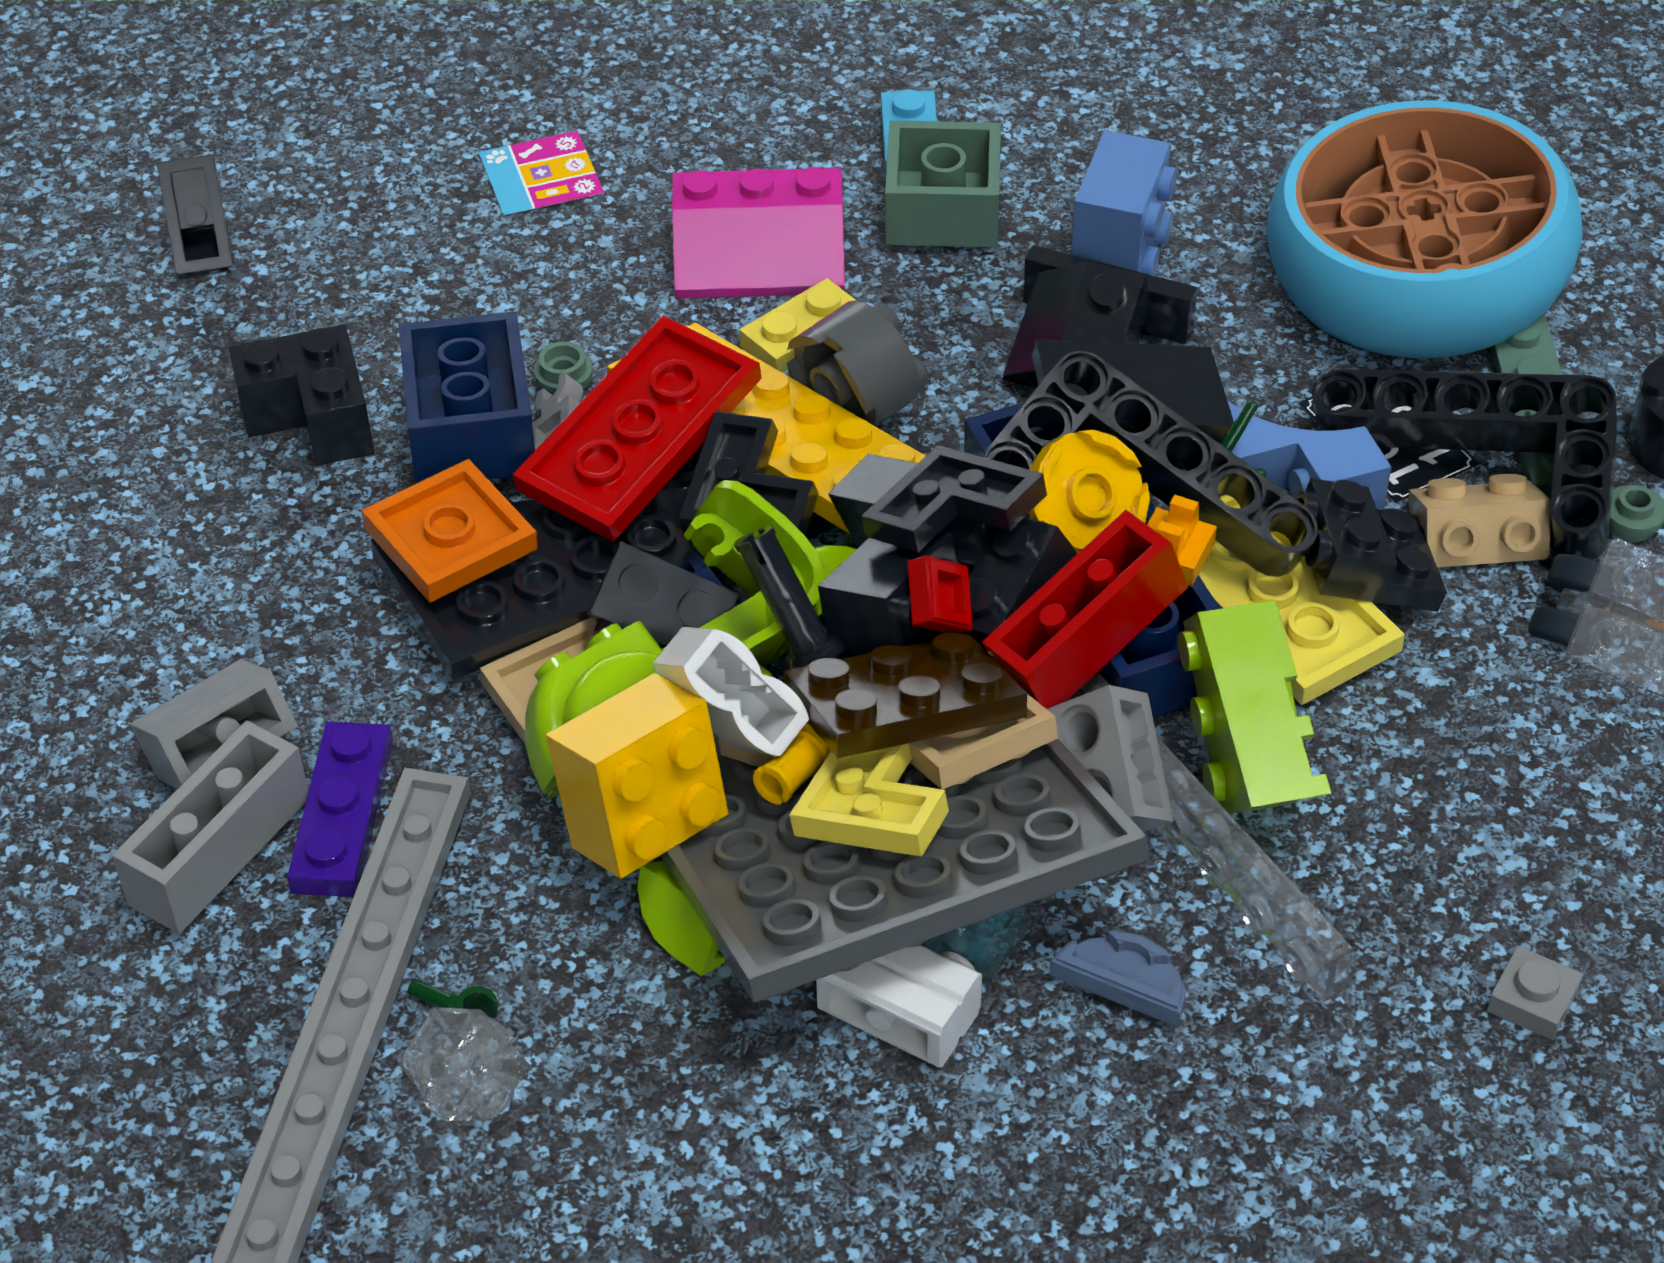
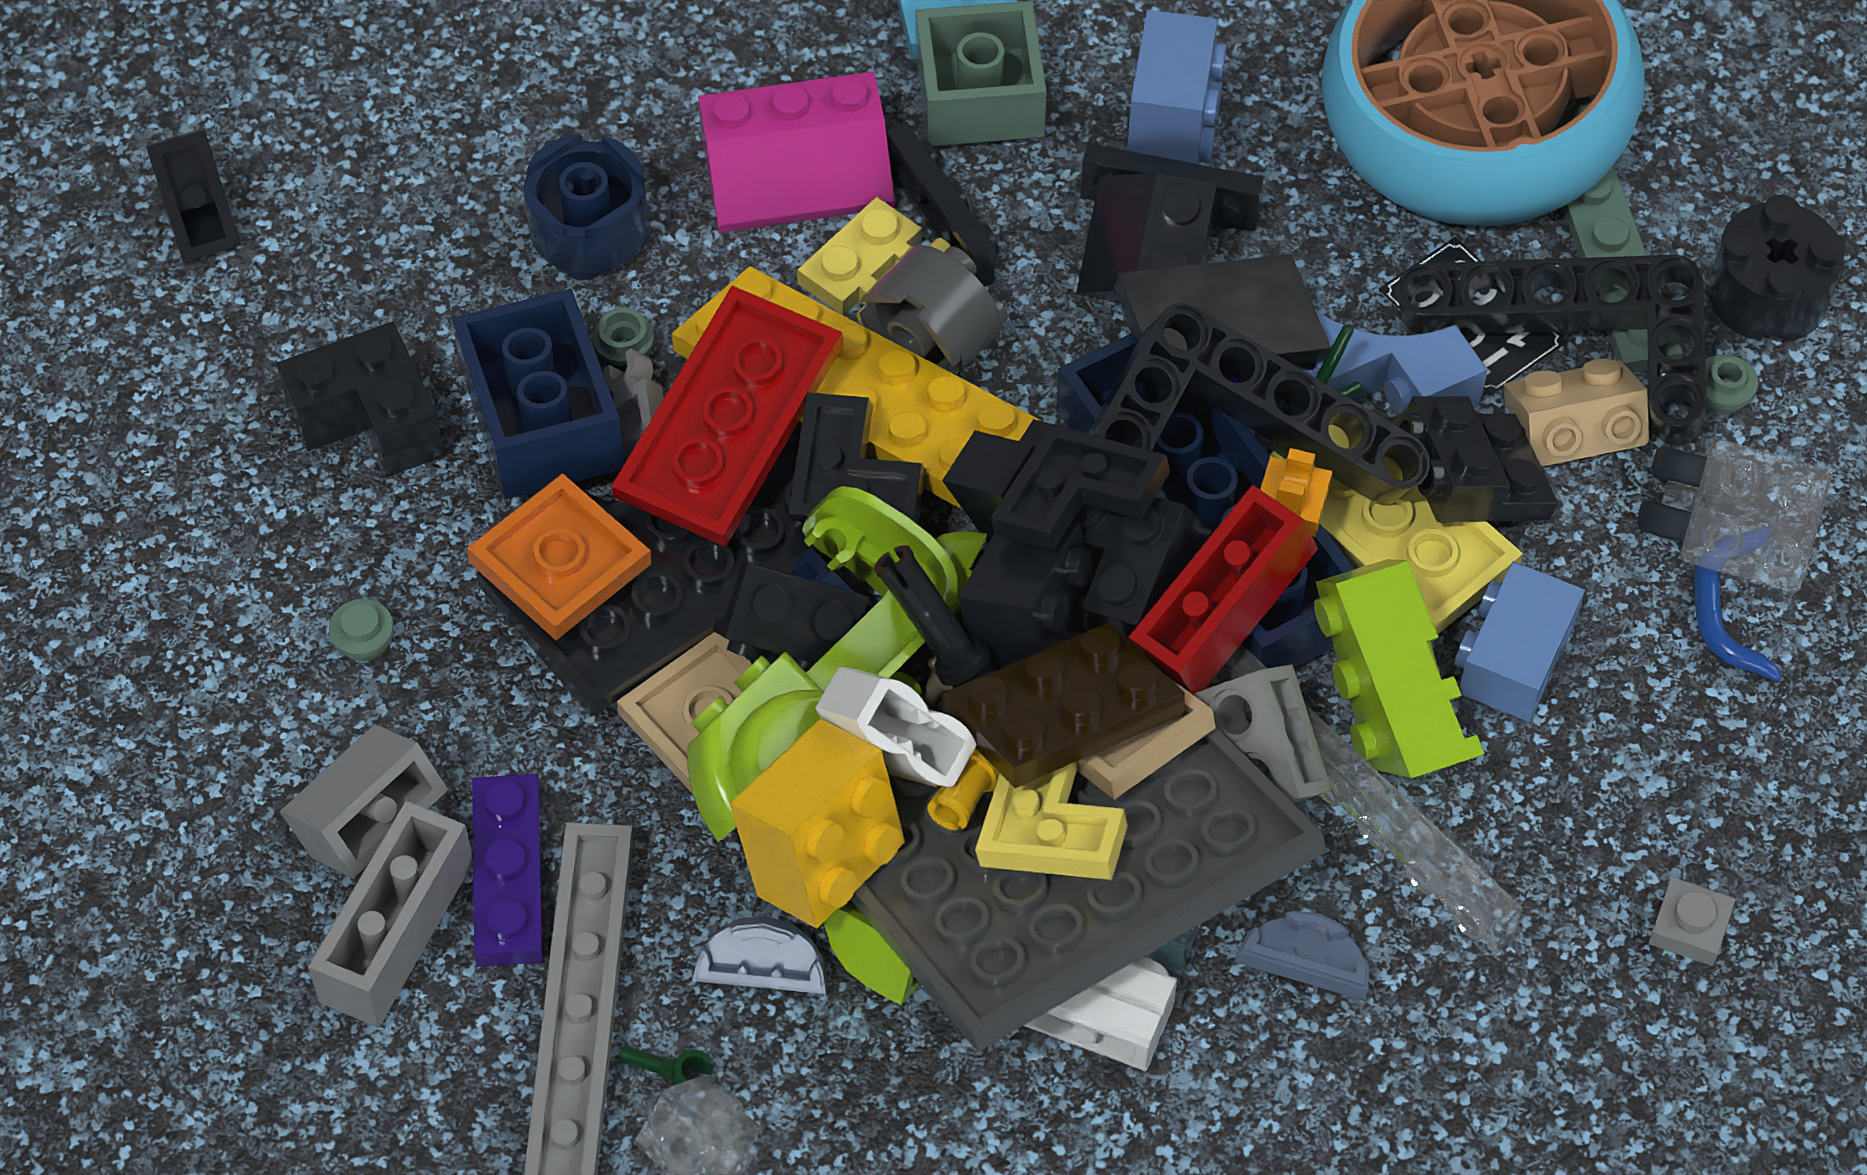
camera: 10 degrees left, 10 degrees up
(255, 586) = (361, 629): none -> sand green plate
(541, 172) = (544, 91): sticker -> none
(551, 255) = (586, 205): none -> dark blue brick
(570, 910) = (762, 955): none -> plate
(871, 265) = (938, 201): none -> black plate
(939, 595) = (1080, 592): red tile -> none
(1088, 484) = (1208, 452): yellow tile -> none
(1389, 712) = (1519, 641): none -> medium blue brick
(1592, 728) = (1715, 636): none -> blue animal

